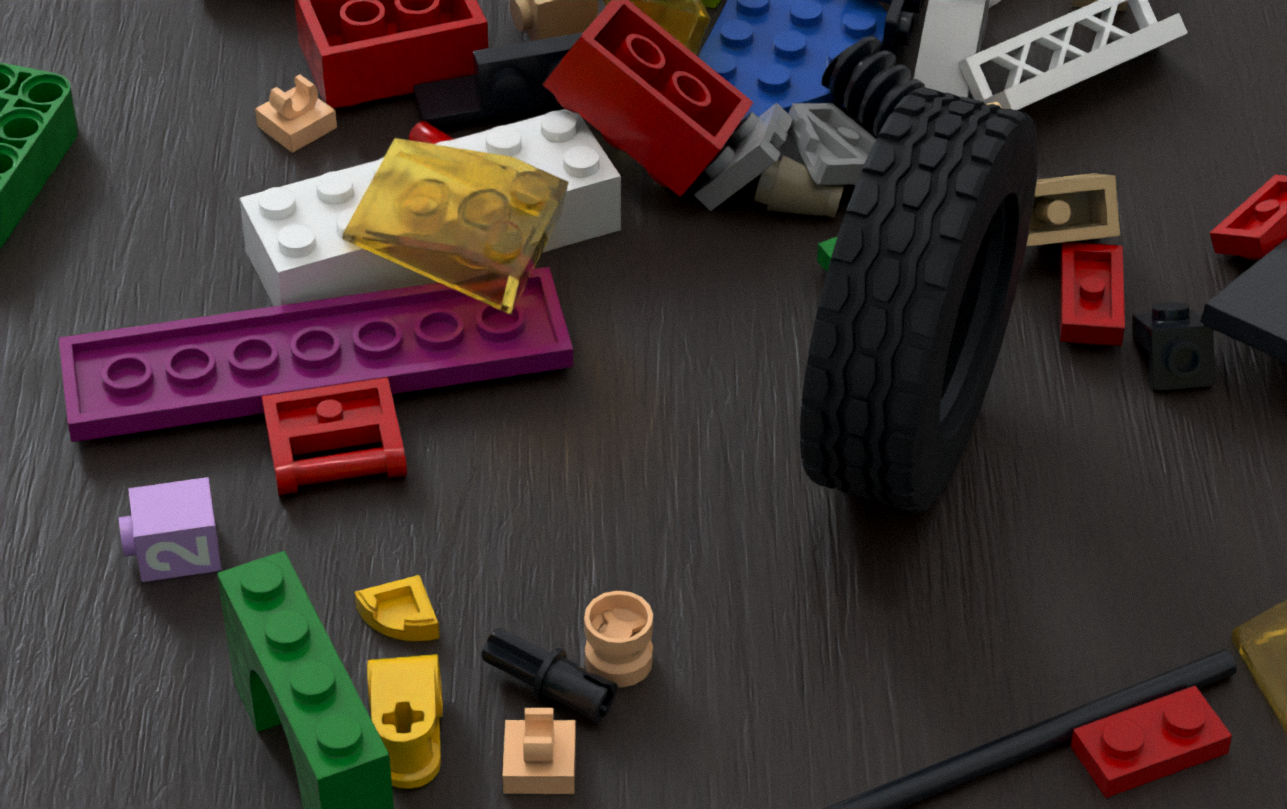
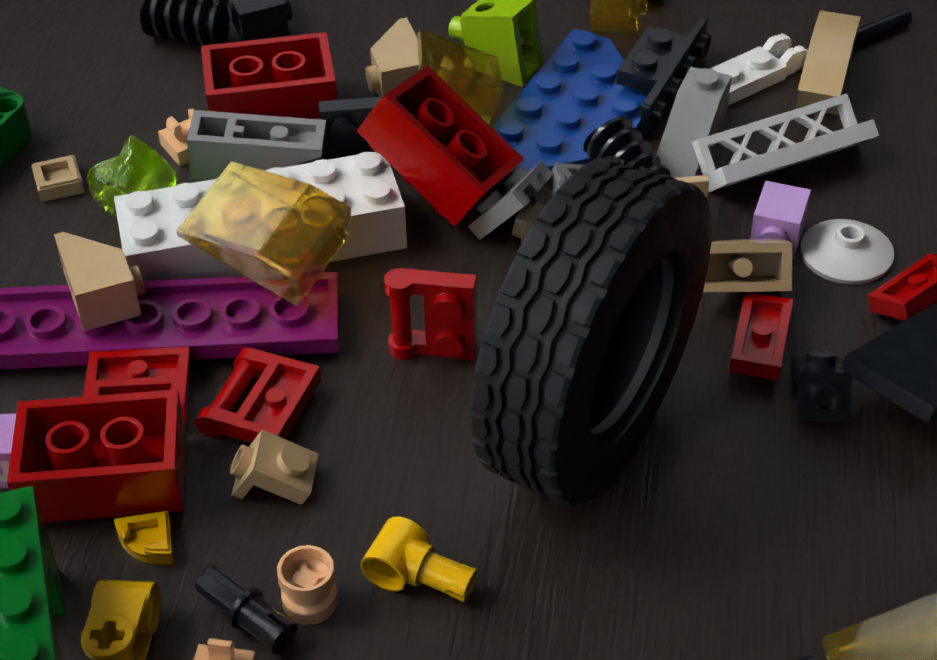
camera: 10 degrees right, 0 degrees up
(136, 182) = (57, 178): none -> tan tile
(245, 166) = (133, 170): none -> clear neon green piece
(252, 305) = (99, 281): none -> tan slope
(337, 507) = (101, 454): none -> red brick
(364, 114) = (250, 141): none -> light grey slope
(510, 437) = (271, 404): none -> red plate
(536, 508) = (275, 467): none -> tan bracket
(709, 306) = (448, 314): none -> red plate
(726, 595) = (405, 556): none -> yellow pin
(1086, 140) = (781, 213): none -> lavender brick
(1171, 182) = (847, 251): none -> white dish

